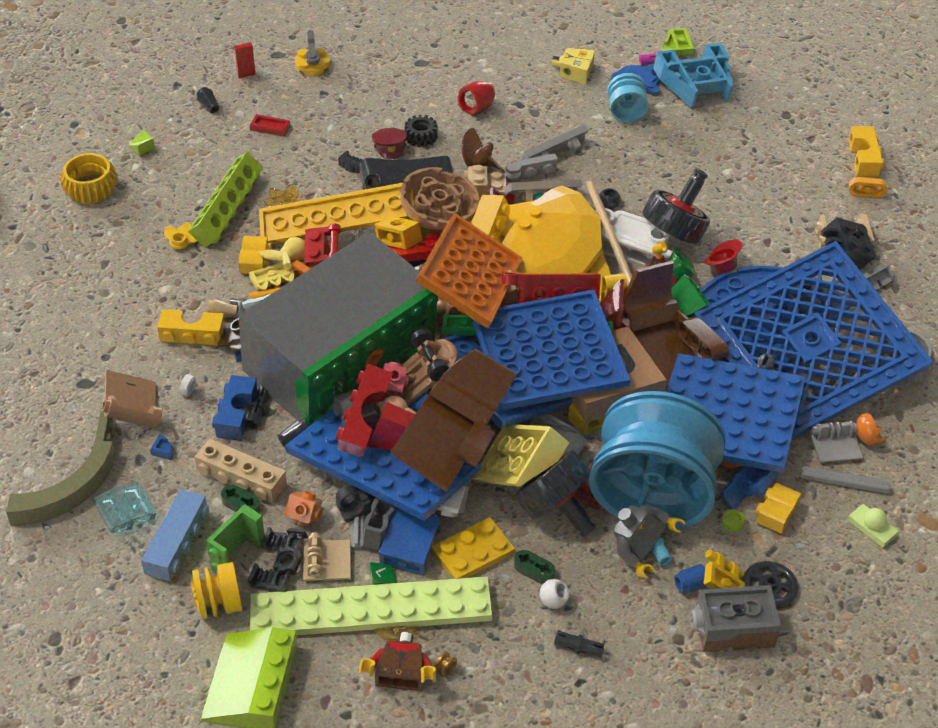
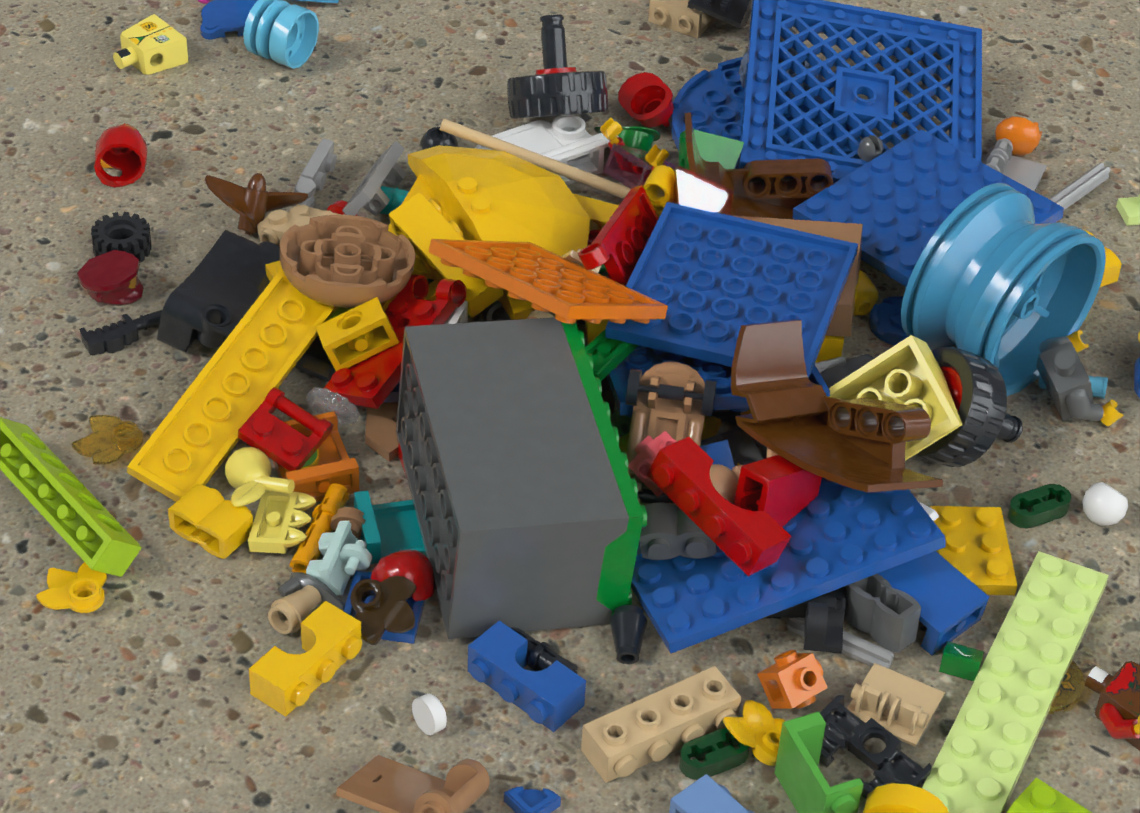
camera: 60 degrees left, 5 degrees down
(268, 508) = (757, 730): none -> yellow plate
(569, 139) = (296, 123): light grey hinge -> none

